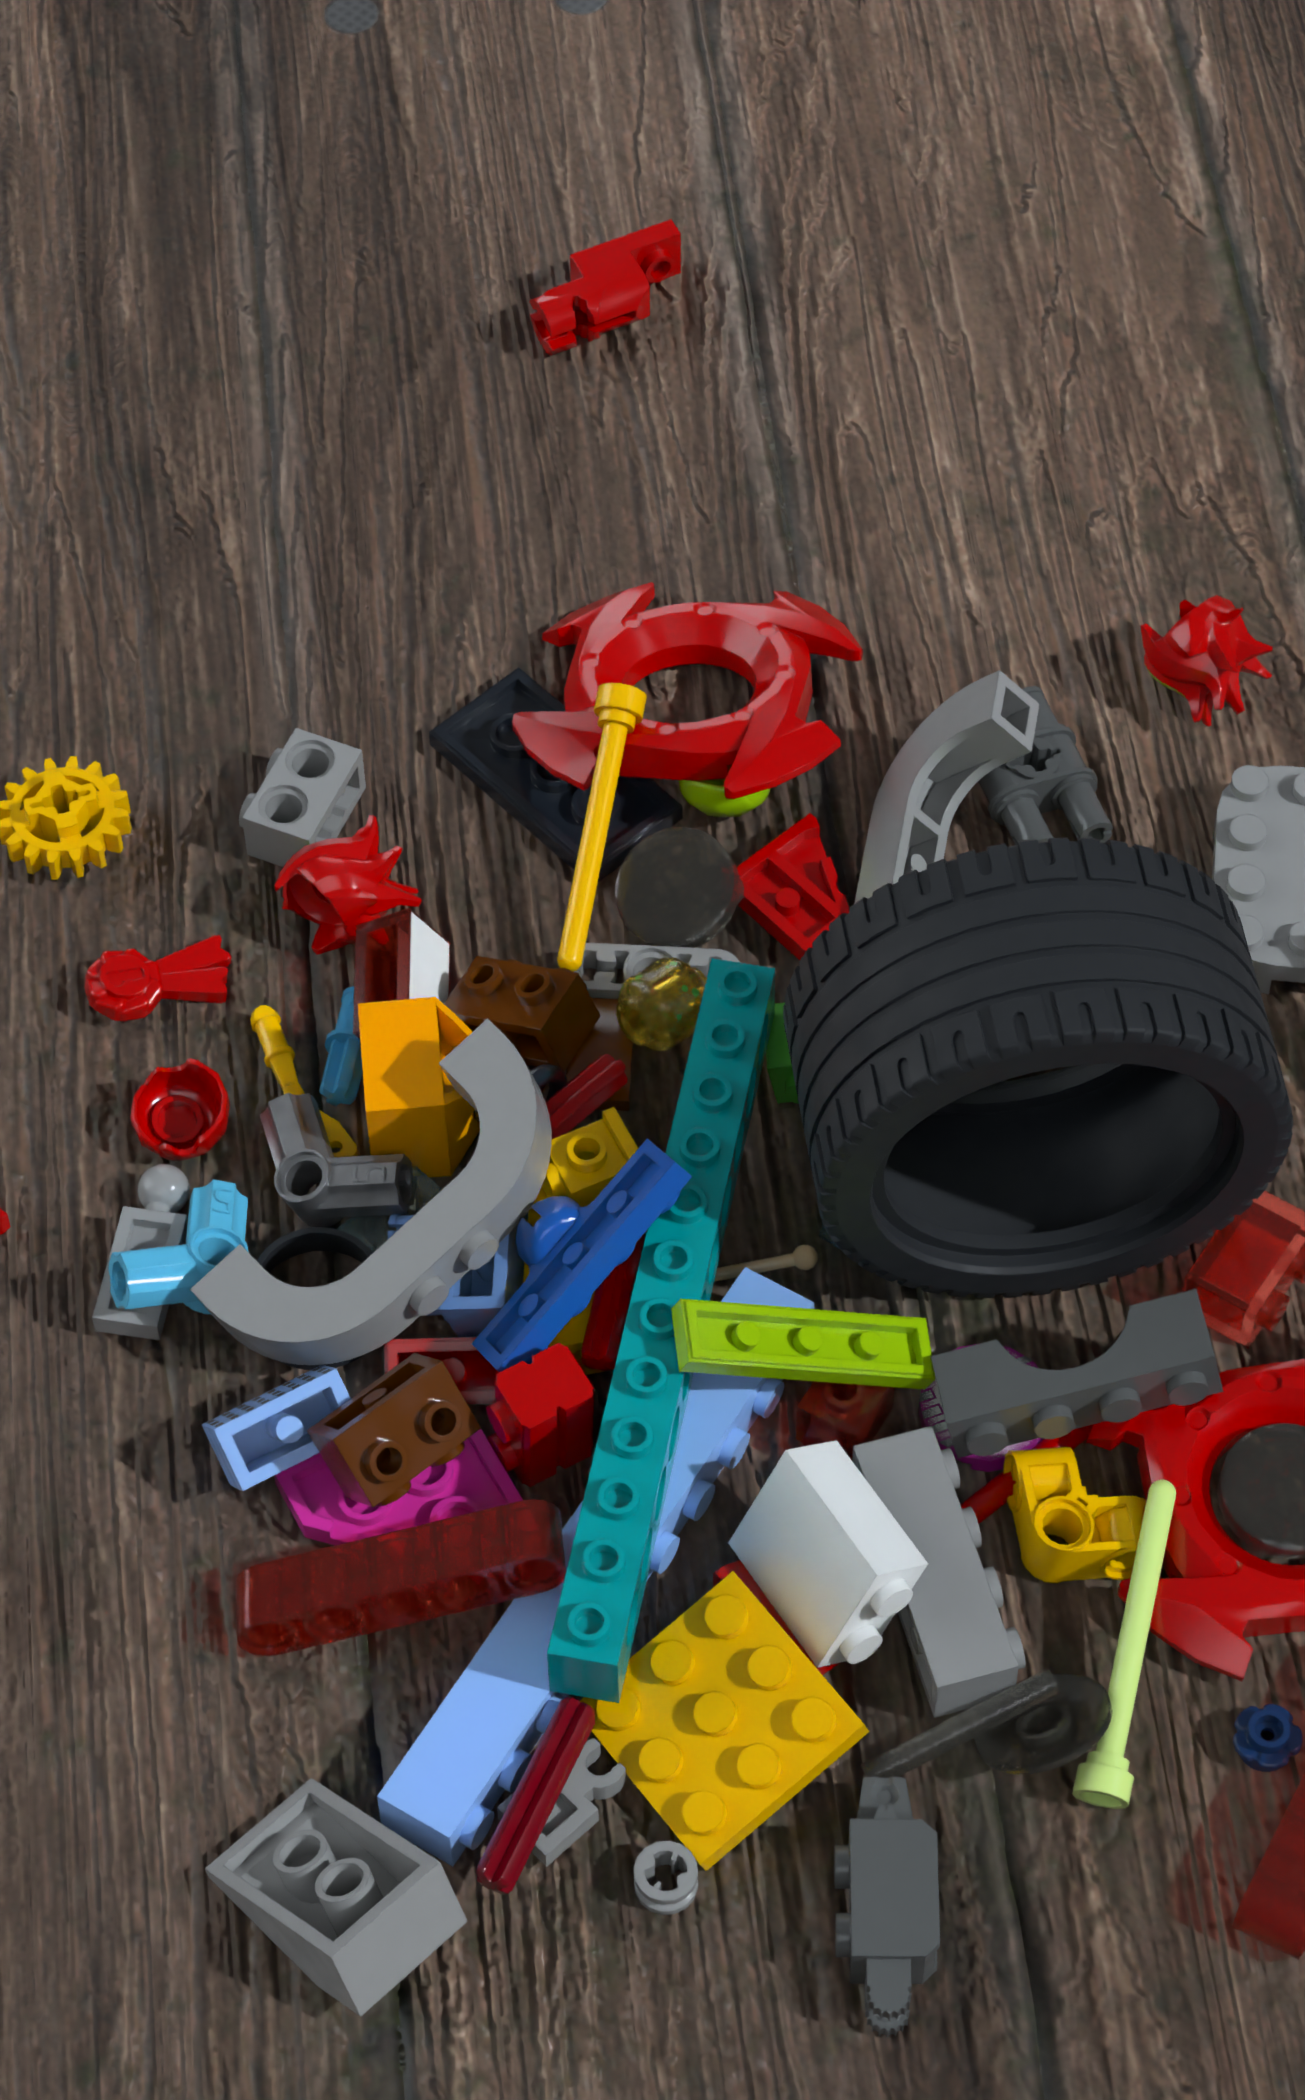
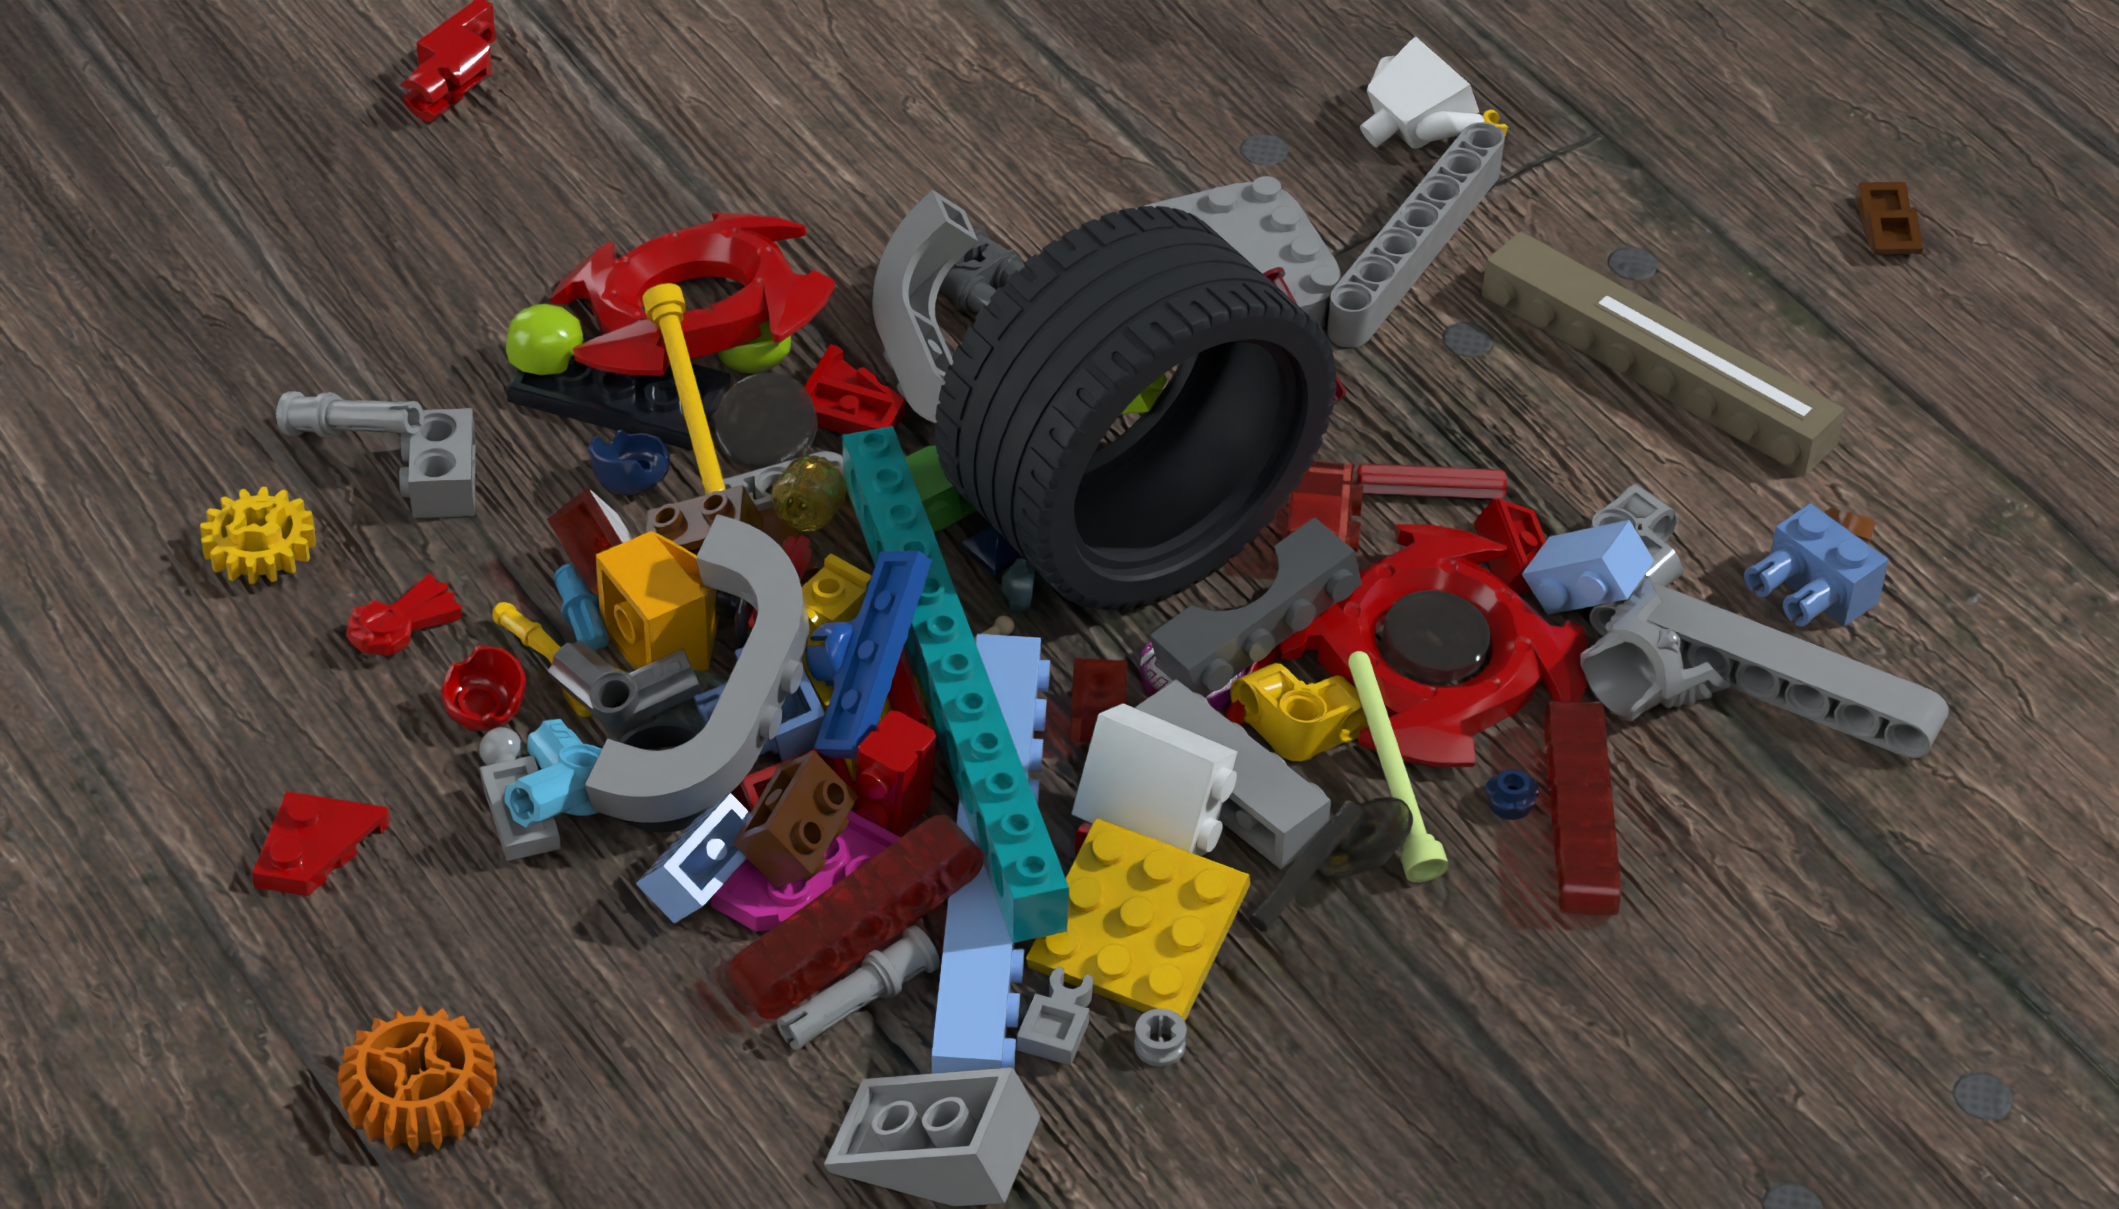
camera: 30 degrees left, 10 degrees down
(217, 698) = (331, 415): none -> light grey pin
(343, 885) = (513, 502): red hair -> none
(399, 1657) = (879, 976): none -> light grey pin
(493, 686) = (543, 339): none -> lime hair
(502, 880) = (629, 462): none -> dark blue hair
(535, 1795) = (1044, 1013): dark red axle -> none
(802, 1344) = (1061, 653): lime tile -> none
(892, 1901) = (1327, 985): dark grey hinge -> none
(1204, 656) = (1050, 153): red hair -> none

